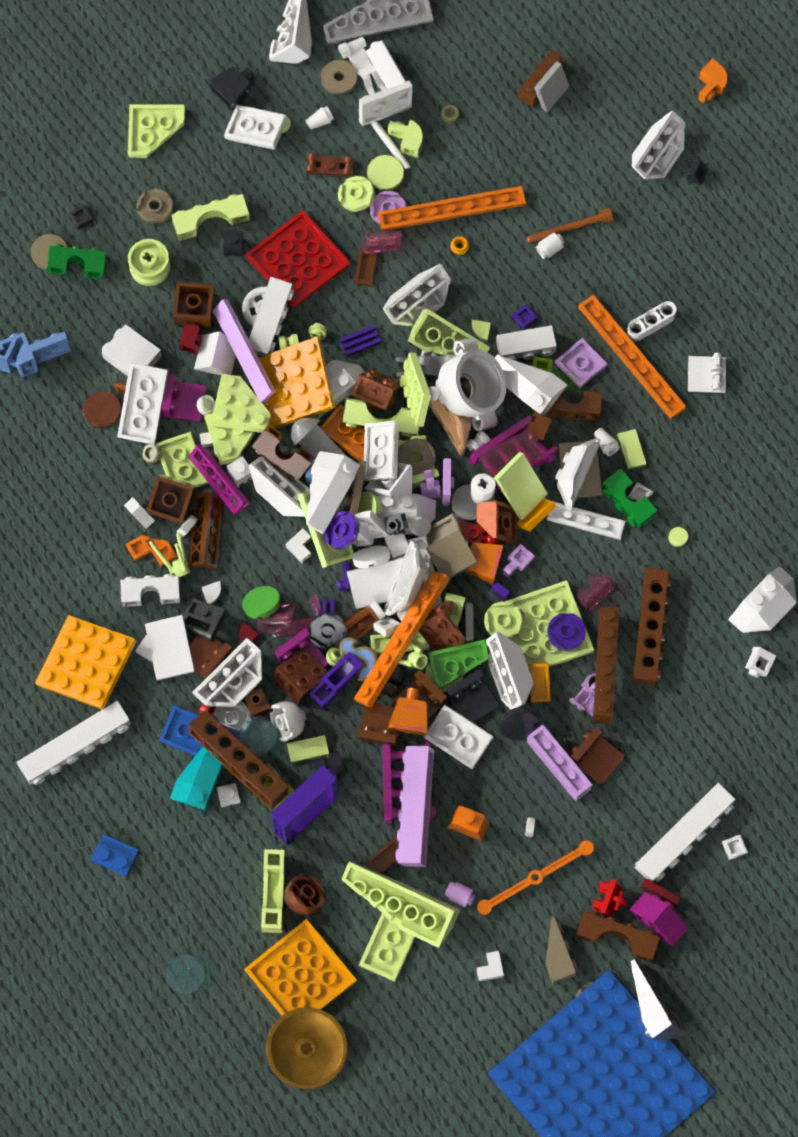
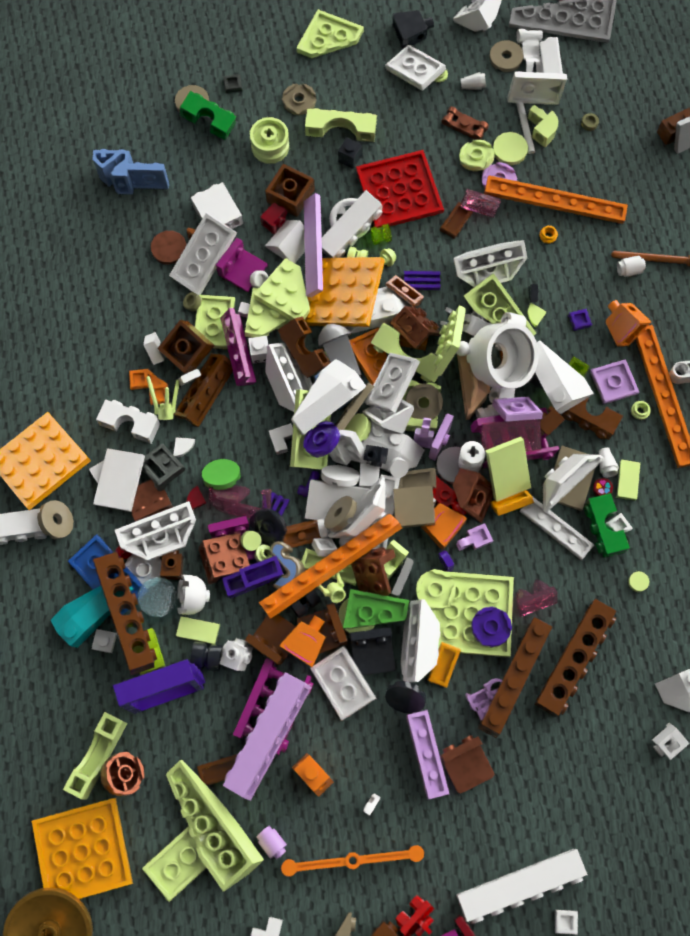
camera: 25 degrees right, 0 degrees up
(131, 707) = (63, 516): none -> tile
(301, 312) = (381, 234): none -> clear neon green wheel
(318, 649) = (250, 540): none -> yellowish green tile
(350, 358) = (405, 291): none -> dark orange slope
(359, 756) = (236, 654): none -> white brick
(389, 589) = (339, 513): none -> dark tan tile
(471, 310) = (533, 293): none -> black tile
(504, 427) = (517, 409): none -> lavender tile
(527, 343) = (572, 343): white brick -> none
(568, 303) = (625, 322): none -> orange torso
(611, 465) = (602, 486): none -> dark red tile
(616, 374) = (643, 405): none -> yellowish green plate

